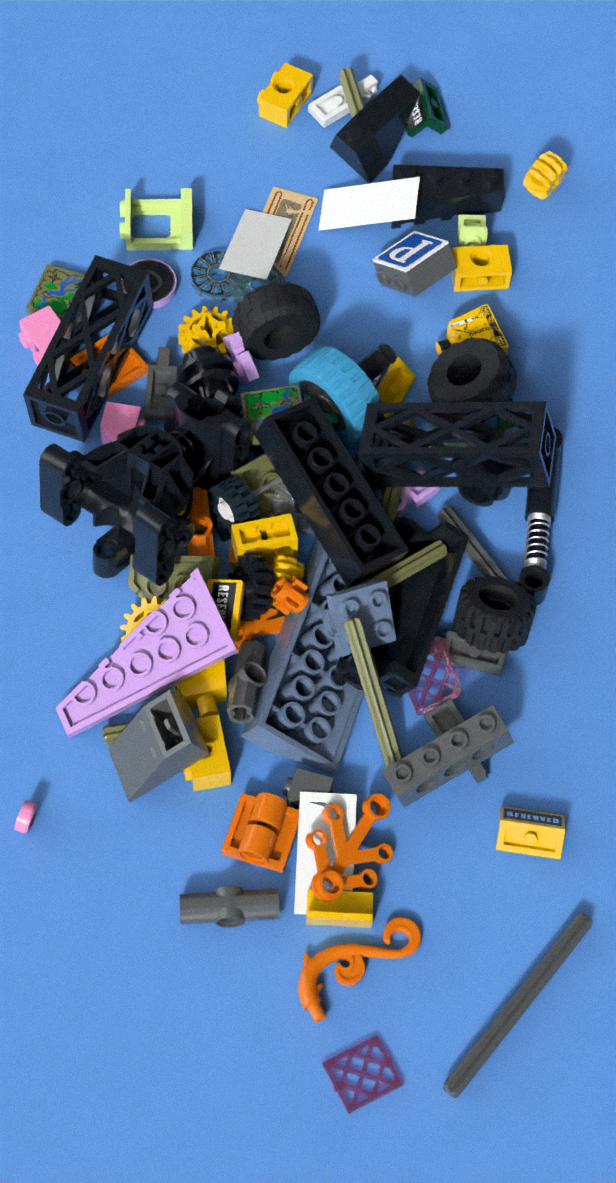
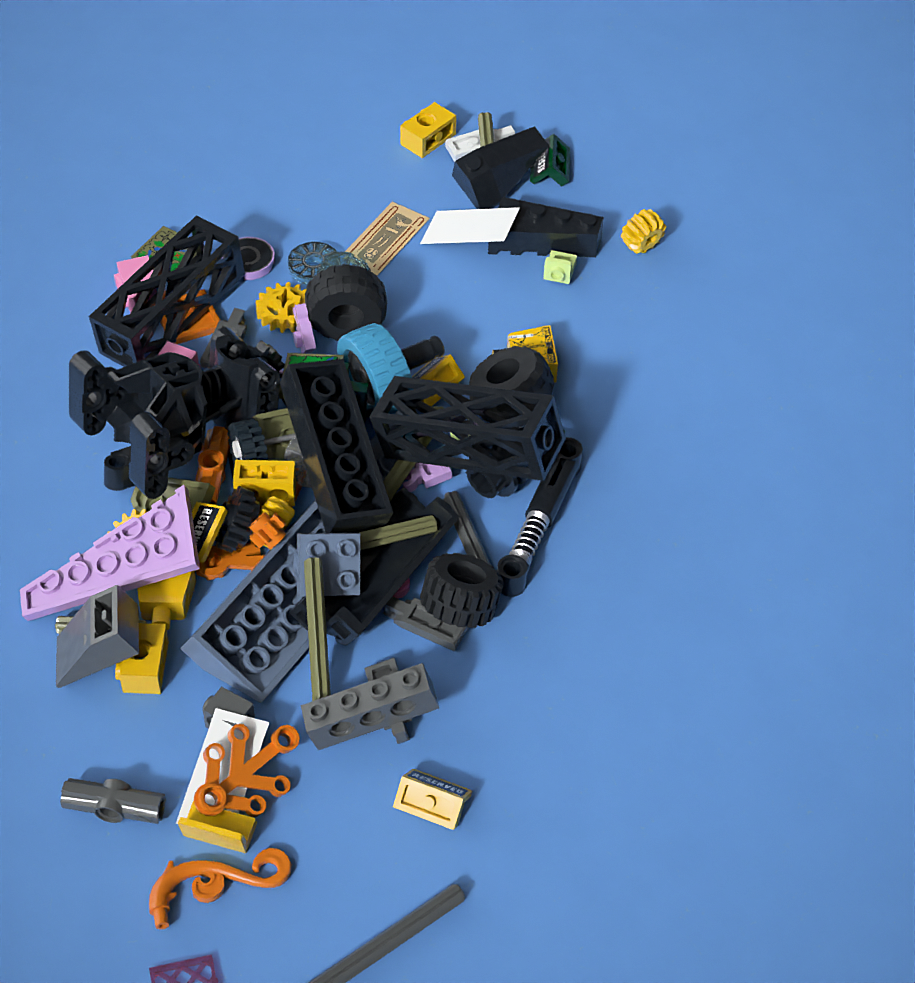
camera: 15 degrees right, 10 degrees down
(180, 216) = (297, 216): yellowish green window -> none
(208, 371) = (271, 328): black piece -> none
(246, 682) = (203, 602): dark grey piece -> none
(255, 244) = (355, 241): white sticker -> none
(262, 831) = (169, 740): orange plate -> none
(414, 263) = (493, 280): piece -> none
(449, 670) = (402, 632): window -> none
(481, 268) = (557, 297): yellow brick -> none

